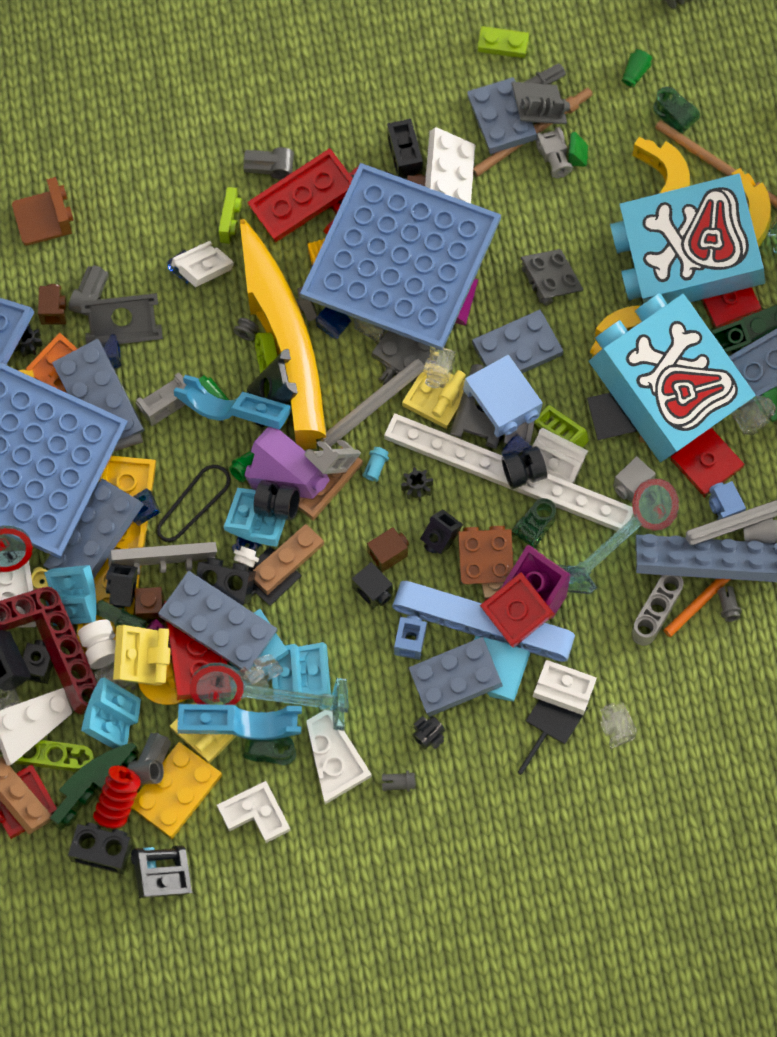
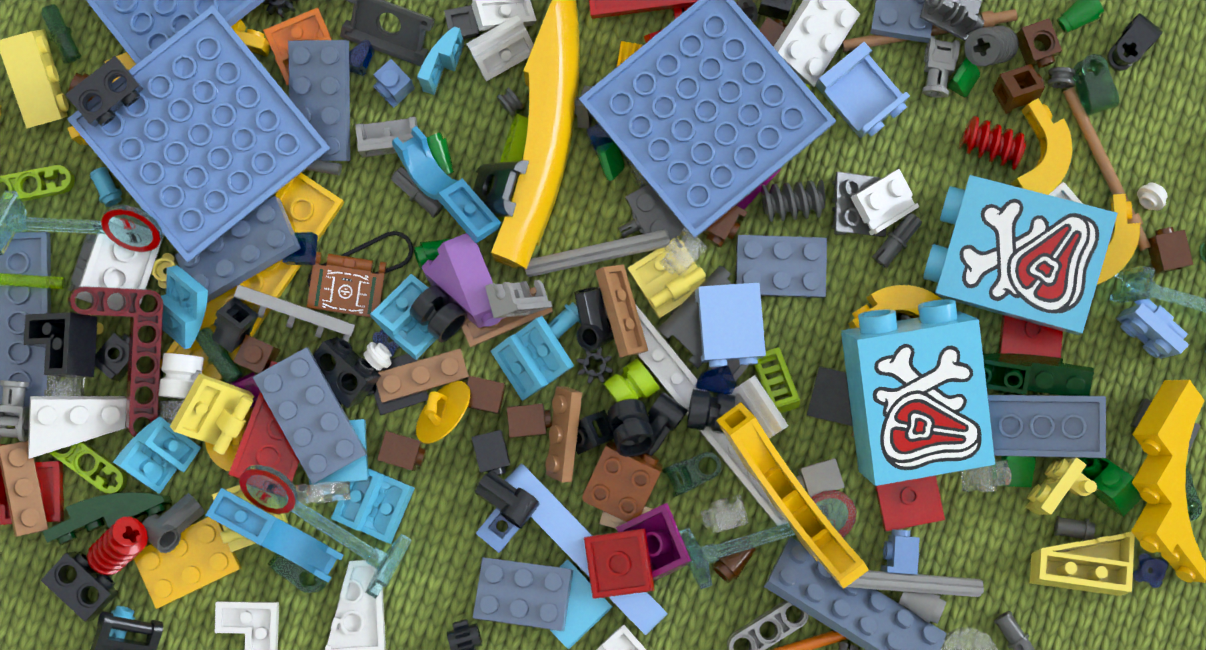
camera: 25 degrees right, 15 degrees up
(148, 358) = (392, 83): none -> medium blue brick
(177, 291) = (464, 19): none -> dark grey plate
(177, 321) = (442, 55): none -> medium azure slope
(192, 521) = (346, 285): none -> dark orange piece
(209, 427) = (404, 181): none -> dark grey axle
(218, 292) = (501, 47): none -> white plate
(302, 620) = (401, 451): none -> reddish brown brick
(319, 570) = (442, 412): none -> yellow shield
(342, 547) = (485, 394): none -> reddish brown brick
(345, 333) = (610, 160): none -> green slope
(365, 503) = (532, 358): none -> medium azure slope
(395, 446) = (595, 326): none -> black piece
(412, 607) = (513, 503): none -> black piece
(415, 431) = (621, 310): none -> medium nougat plate
(421, 542) = (563, 433): none -> medium nougat plate
(451, 486) = (632, 384): none -> lime wheel
(459, 335) = (725, 226): none -> reddish brown brick
(470, 507) = (631, 427): none -> black wheel
(491, 493) = (663, 418): none -> black piece
(500, 293) = (793, 201): none -> dark grey piece
(508, 195) = (861, 92): none -> light blue panel
(568, 262) = (884, 201): none -> white plate
(578, 542) = (725, 514): none -> clear brick
(584, 116) = (991, 45): none -> dark grey piece
(593, 286) = (897, 240): none -> dark grey axle
(604, 573) = (731, 566): none -> reddish brown cone
(617, 93) = (1045, 33): none -> reddish brown brick
(617, 498) = (789, 496): none -> yellow arch
(620, 138) = (1018, 87): none -> reddish brown brick
(624, 183) = (993, 142): none -> red piece
(648, 117) = (1061, 77): none -> dark grey bush
(686, 70) = (1135, 41): none -> black piece
(762, 166) = (1152, 196): none -> white plate

